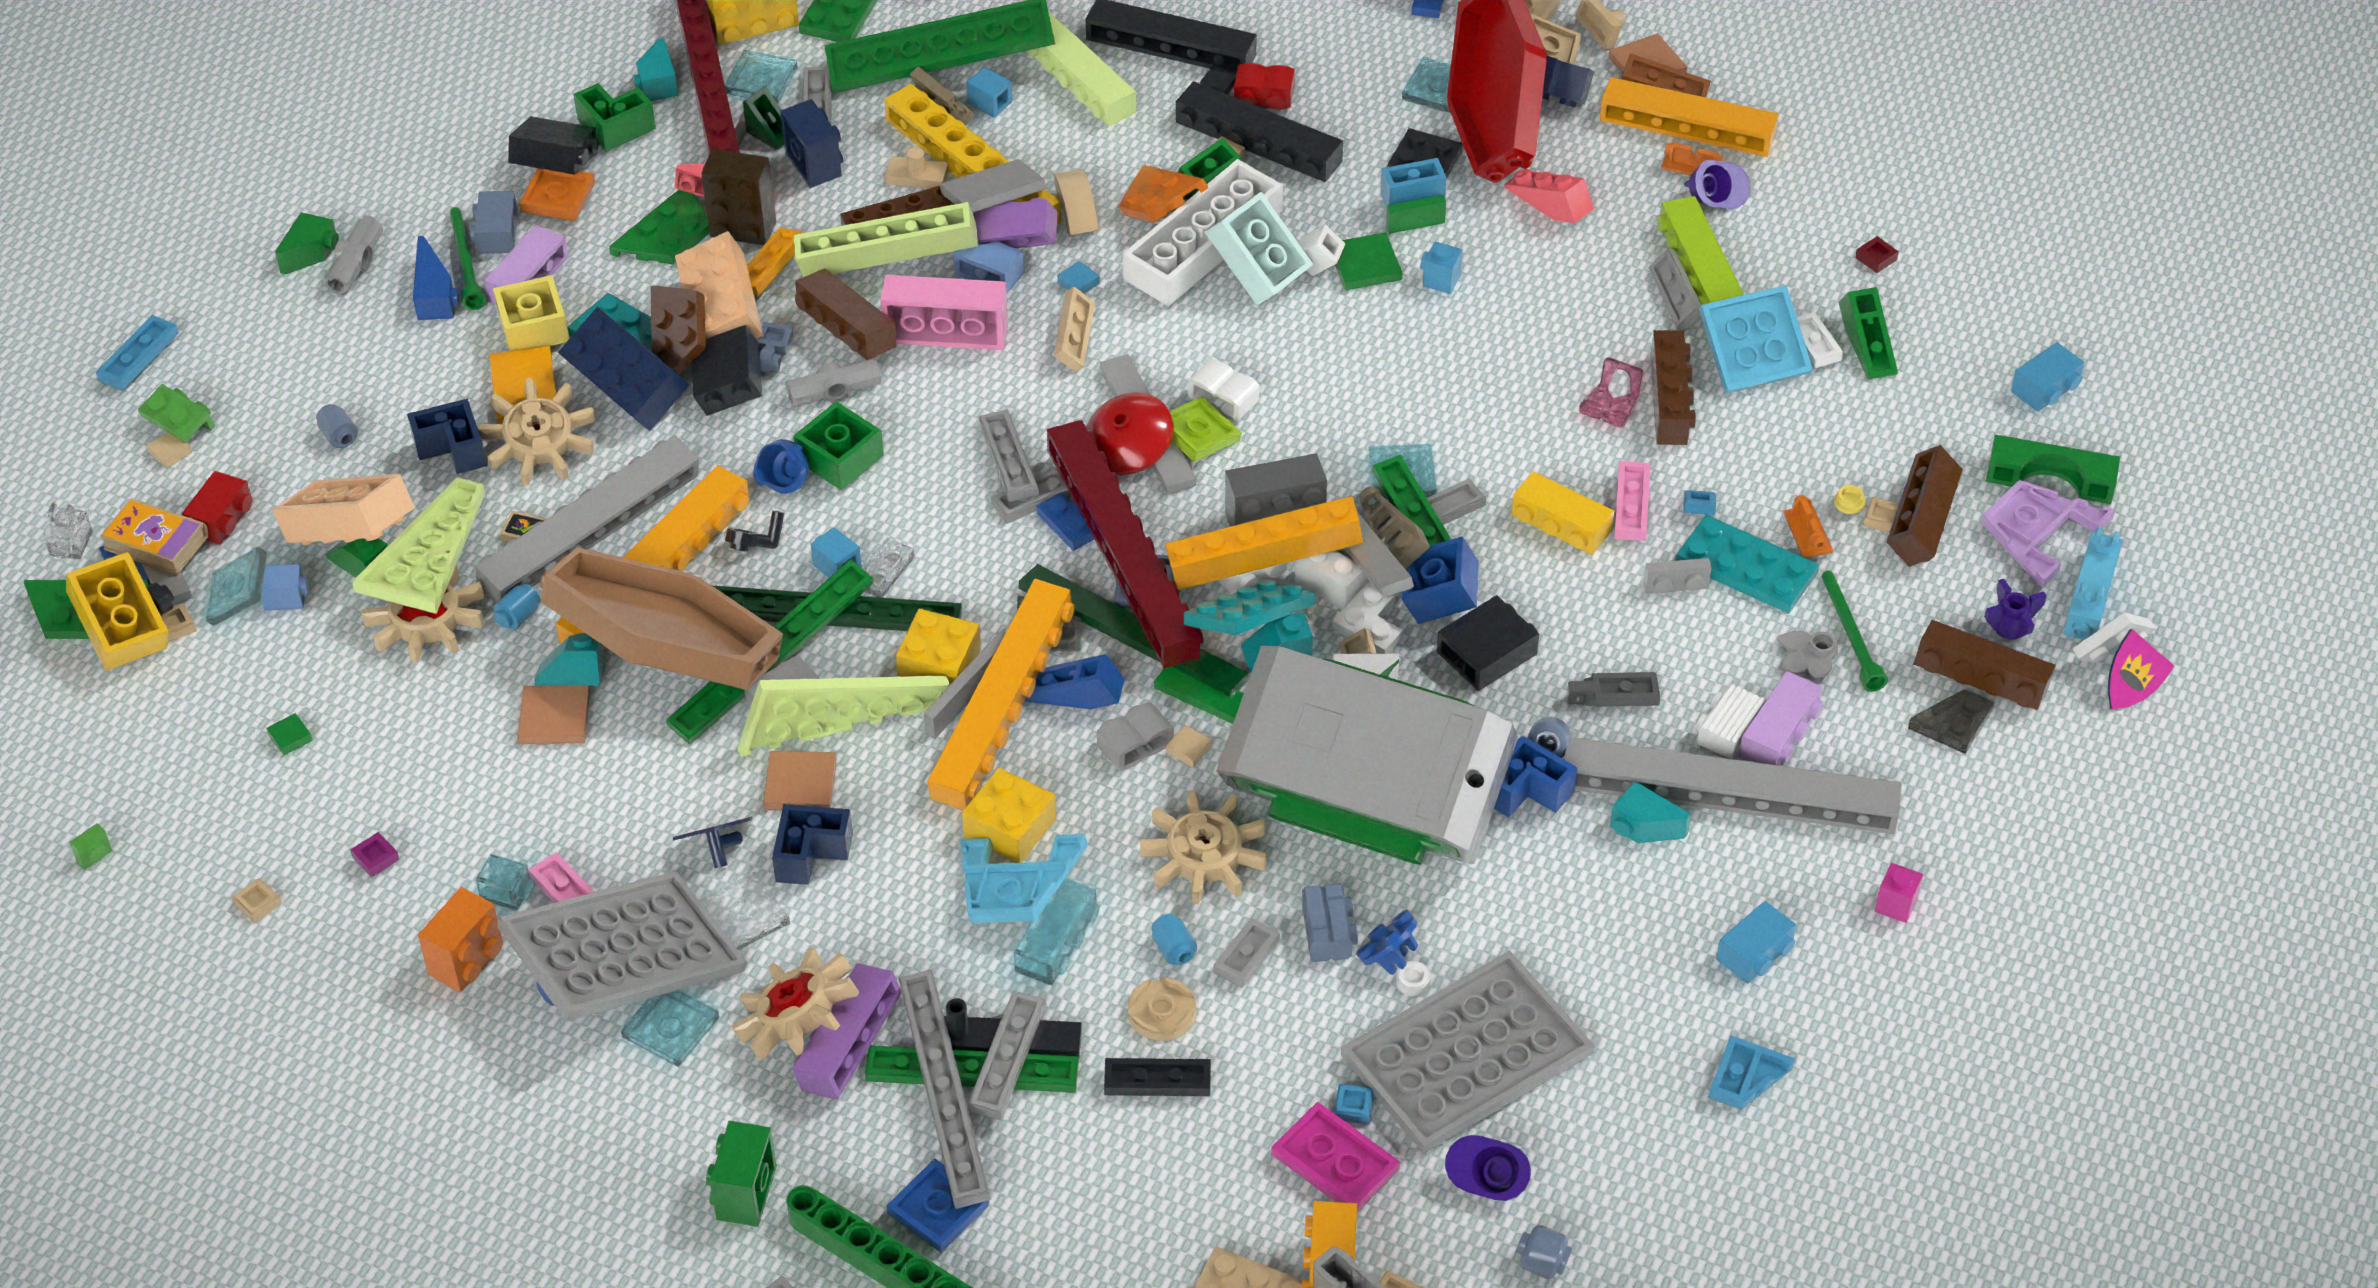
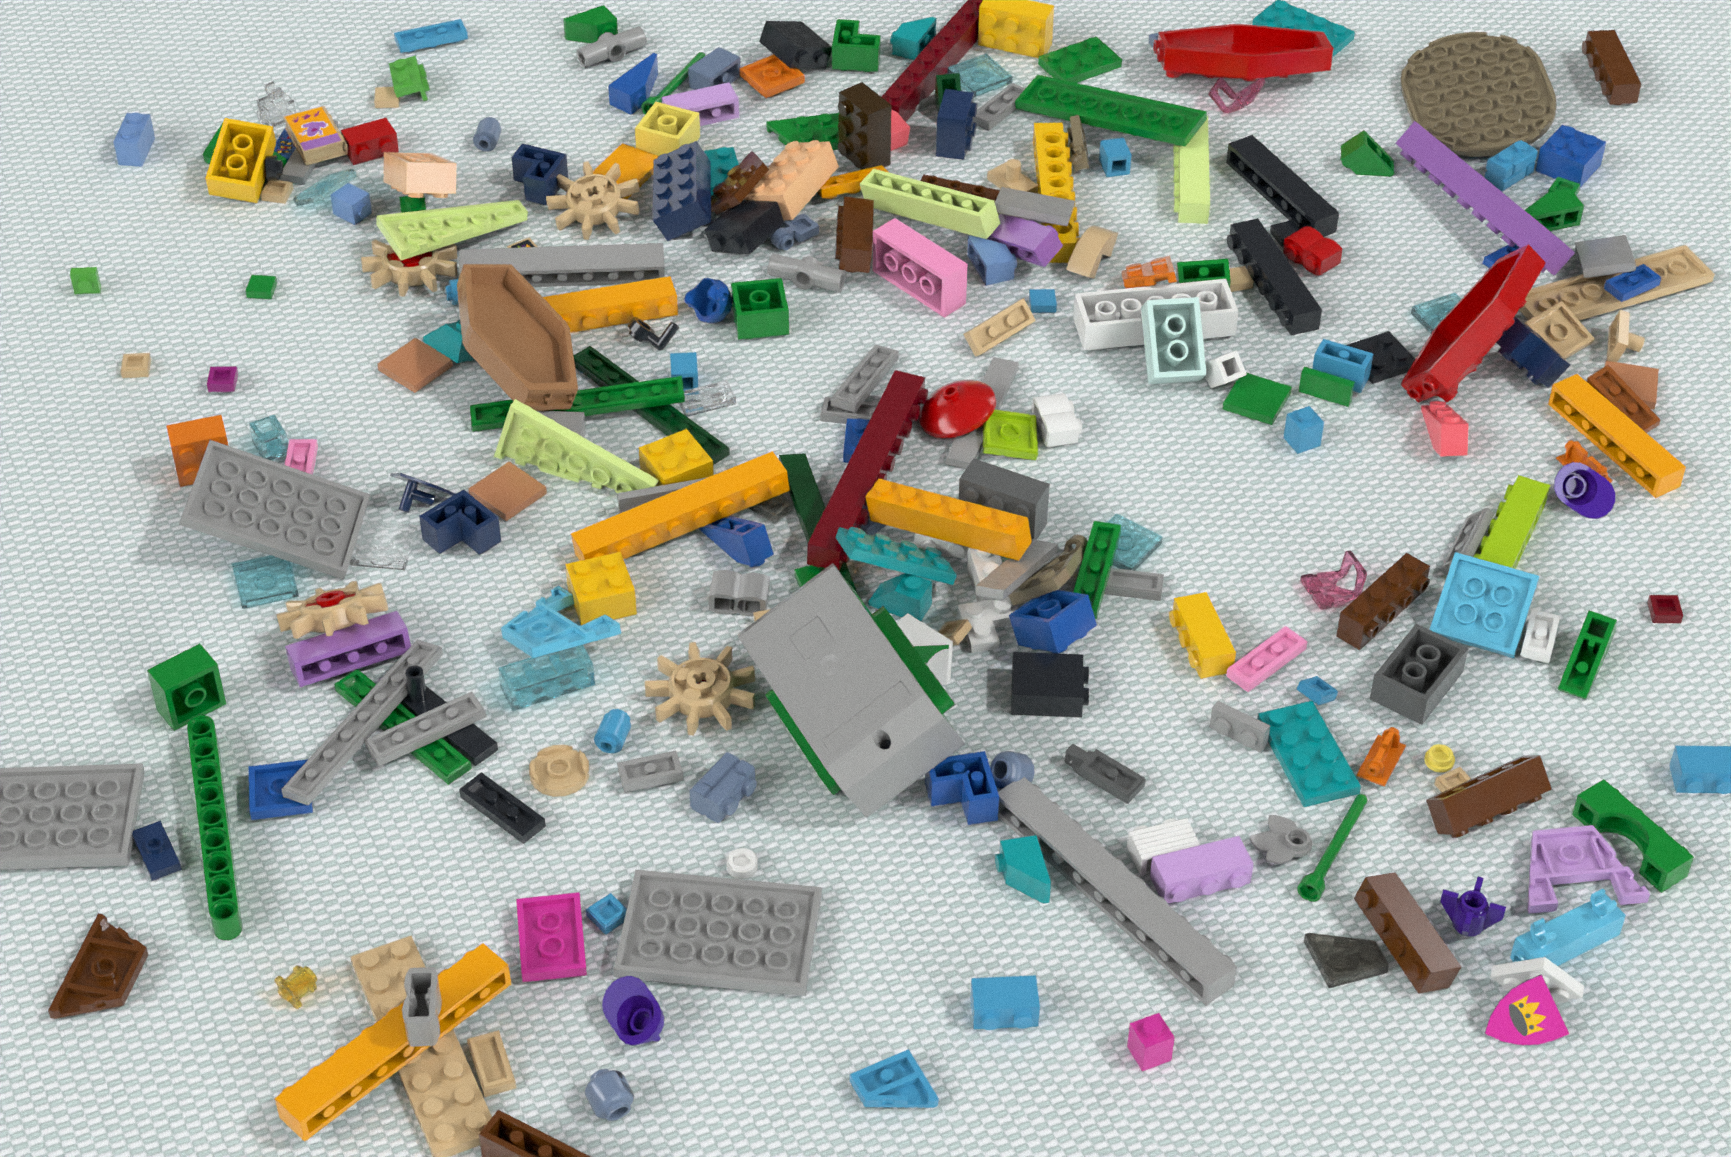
camera: 40 degrees right, 5 degrees down
(1390, 943) = (754, 823): blue plate -> none
(1767, 434) = (1418, 674): none -> dark grey brick

